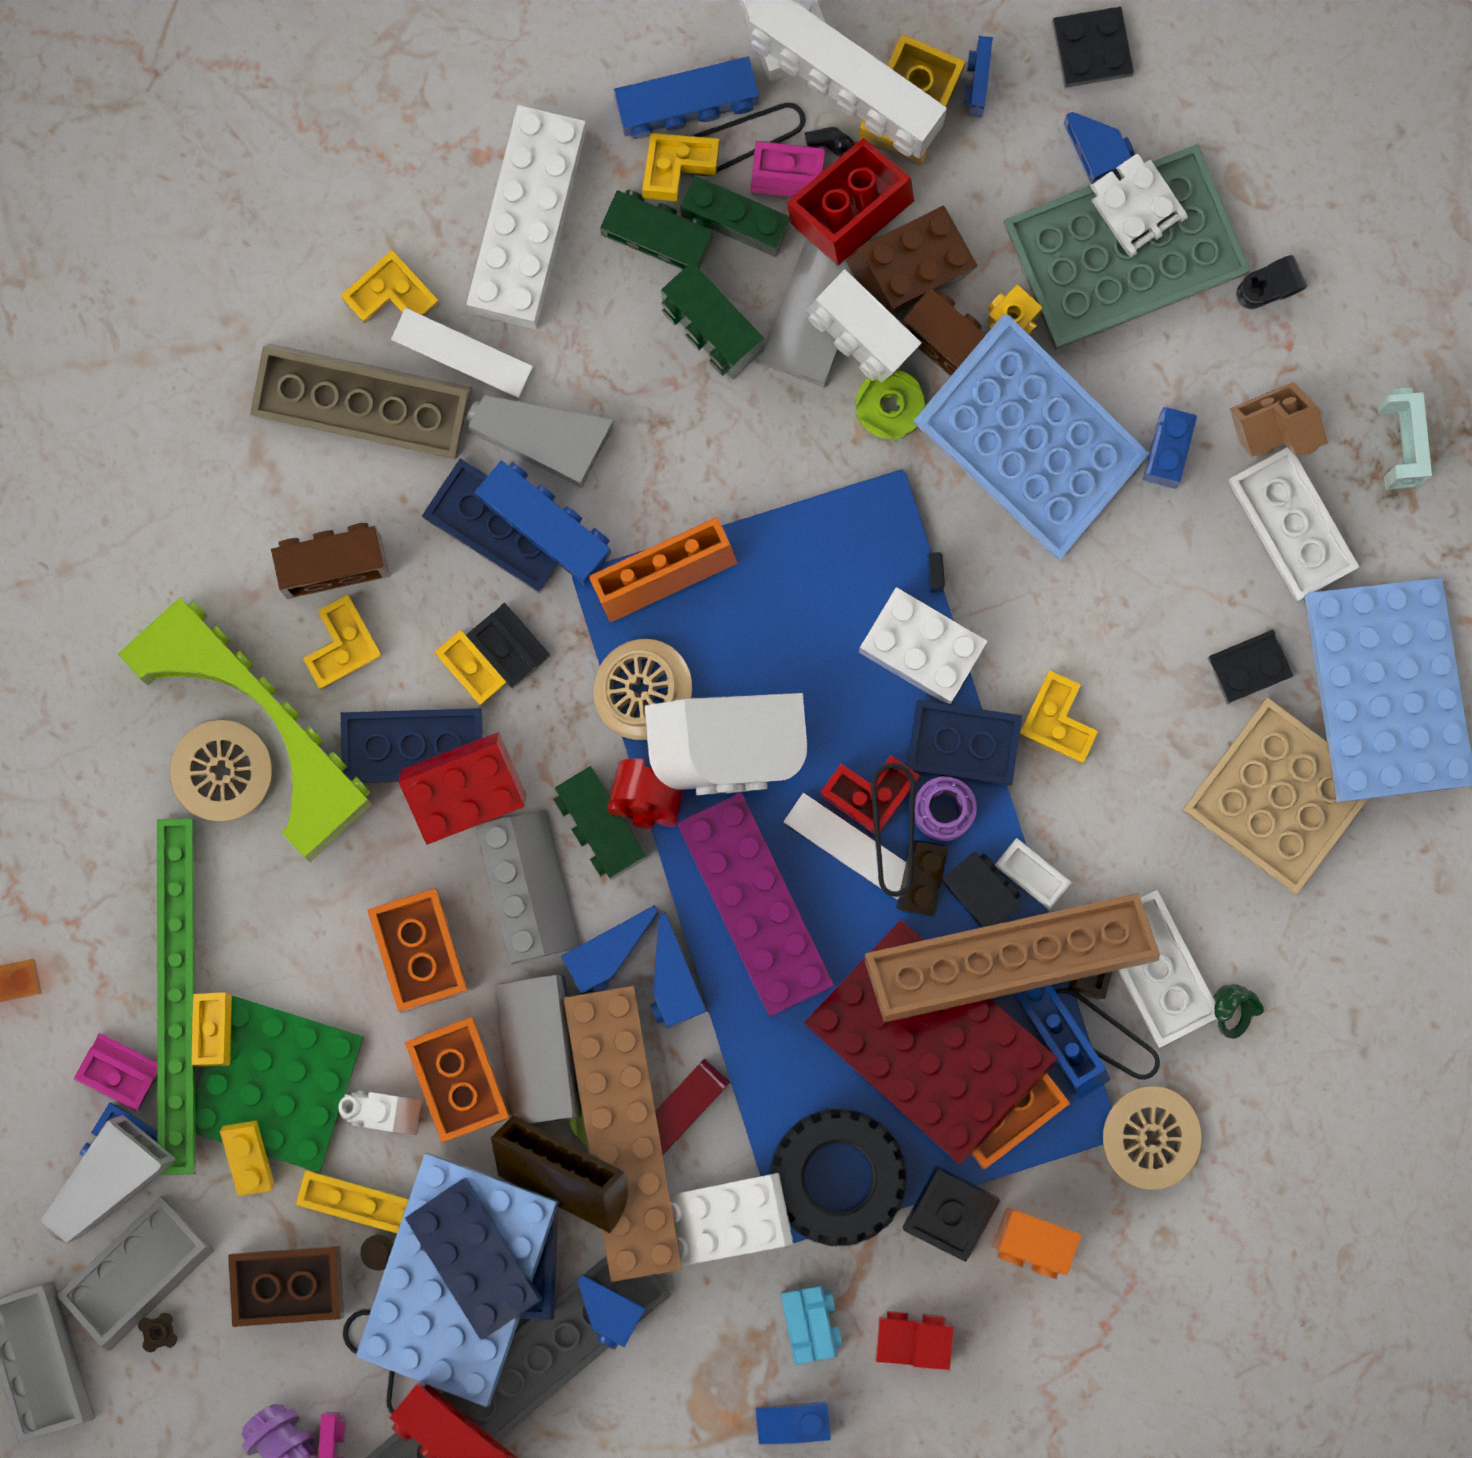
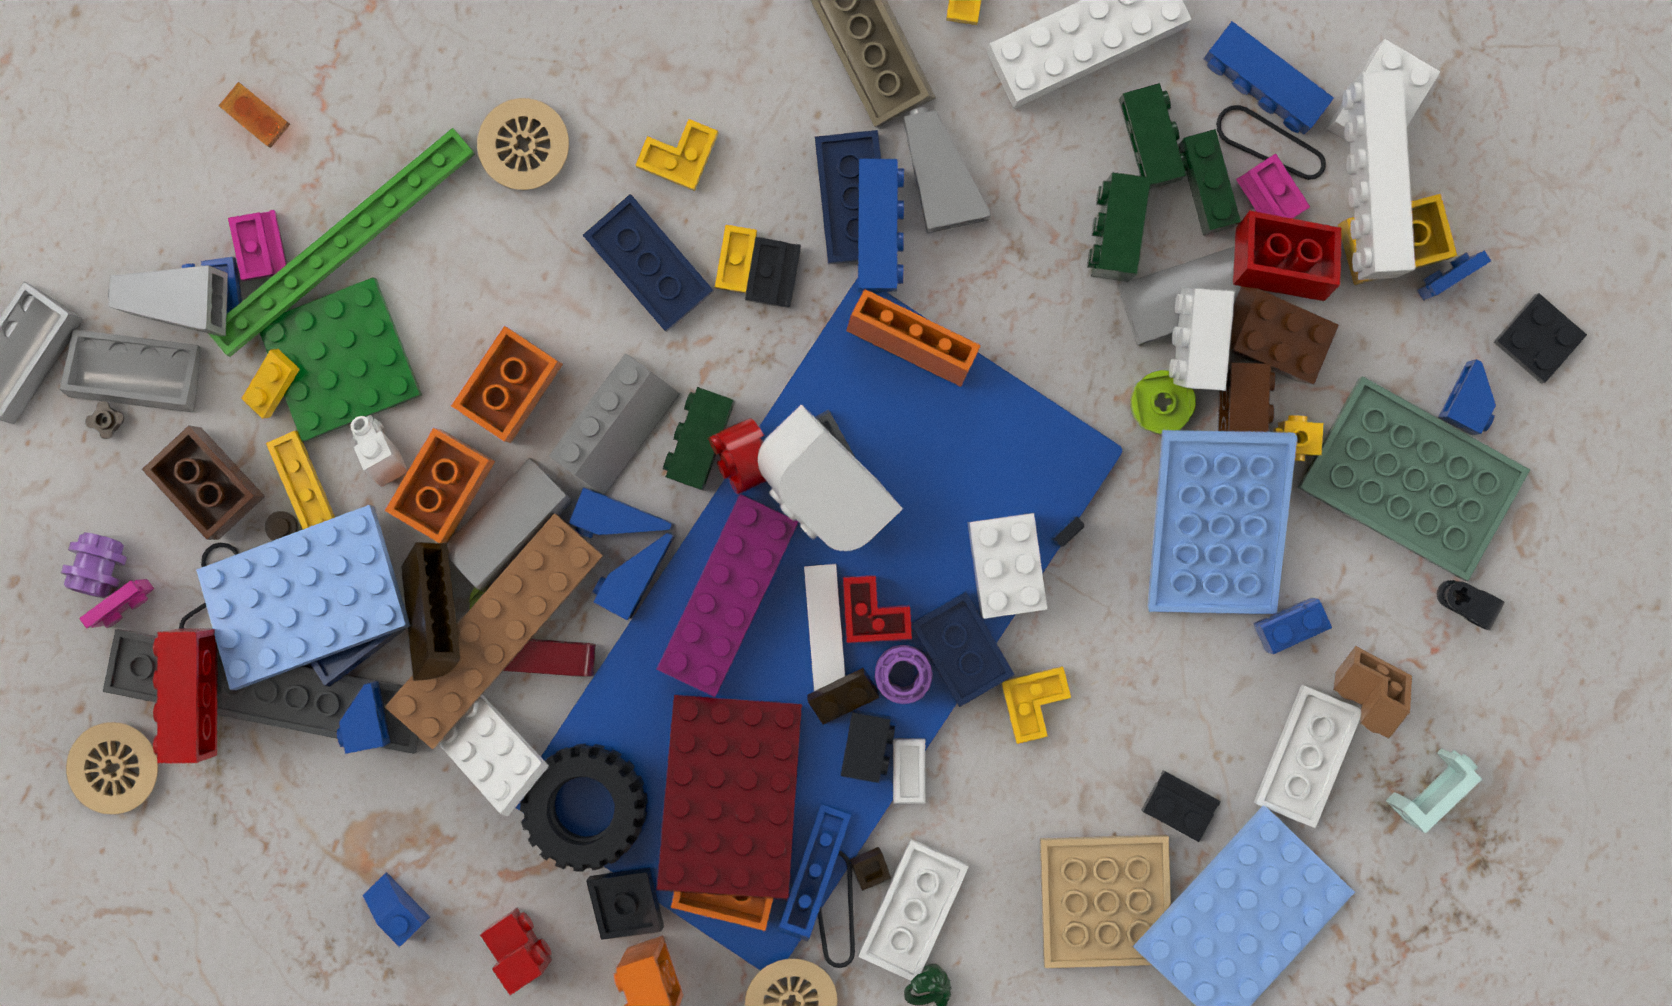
camera: 50 degrees right, 5 degrees up
(211, 1029) = (336, 286): yellow plate -> none
(322, 795) = (562, 226): lime arch -> none
(329, 561) = (728, 97): reddish brown brick -> none
(461, 353) = (953, 69): white tile -> none
(462, 788) = (644, 322): red brick -> none
(473, 1258) = (320, 599): dark blue plate -> none
(671, 663) = (851, 380): tan piece -> none
(674, 155) = (1214, 102): yellow plate -> none
(810, 1324) = (470, 865): medium azure brick -> none
(830, 137) = (1321, 205): black arm -> none
(877, 828) = (867, 664): black piece -> none
(1011, 957) = (834, 807): medium nougat plate -> none
(1136, 203) = (1452, 461): white plate -> none

